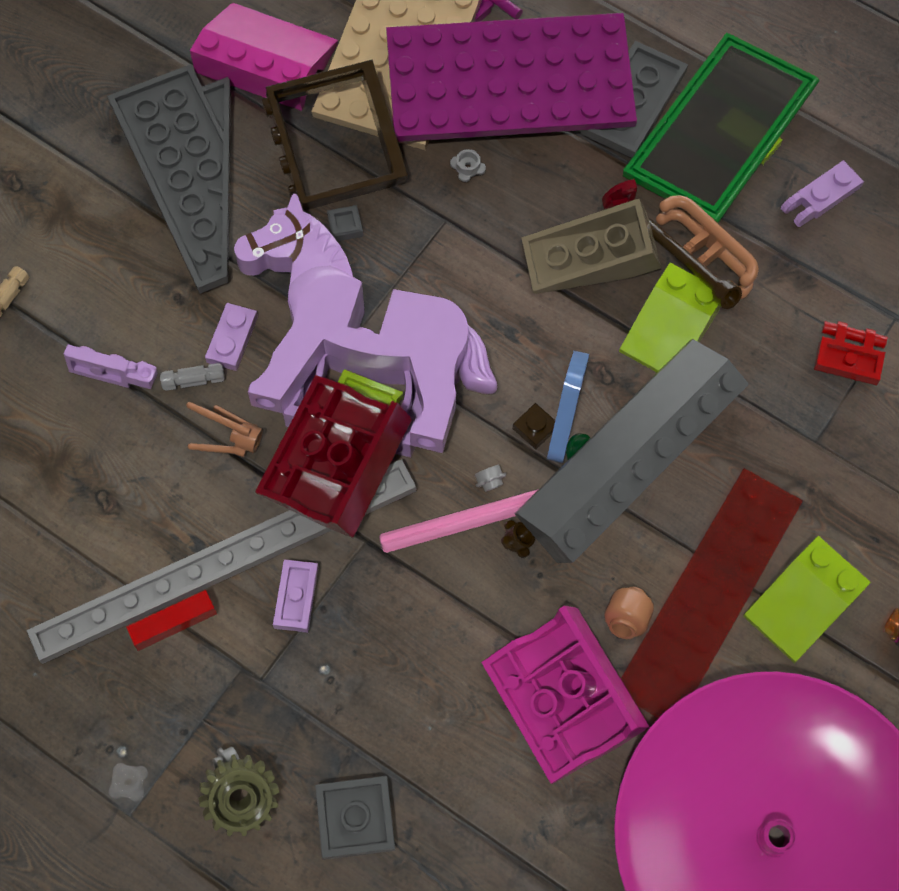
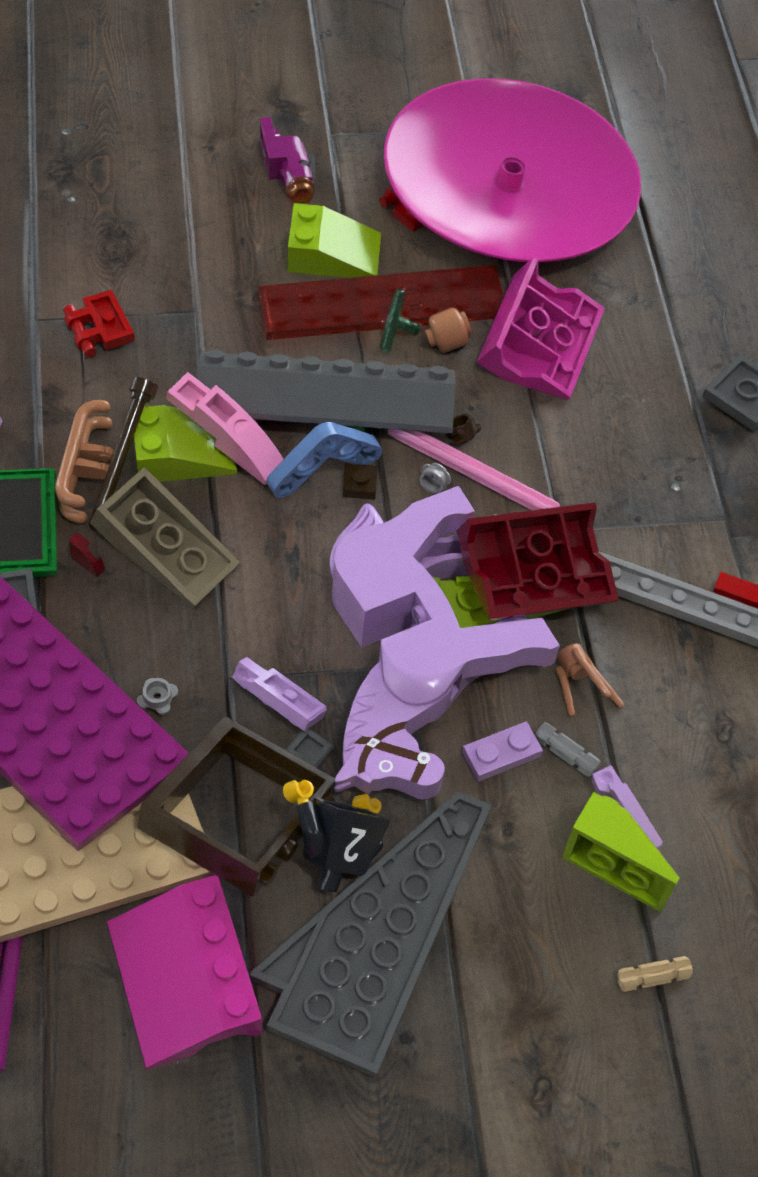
camera: 135 degrees left, 10 degrees down
(88, 319) = (619, 852): none -> lime slope
(256, 171) = (337, 834): none -> black torso
(295, 596) = (652, 533): lavender plate -> none
(397, 230) = (280, 694): none -> lavender hinge
(653, 343) = (229, 423): none -> bright pink slope
(673, 575) = (395, 321): none -> clear green piece

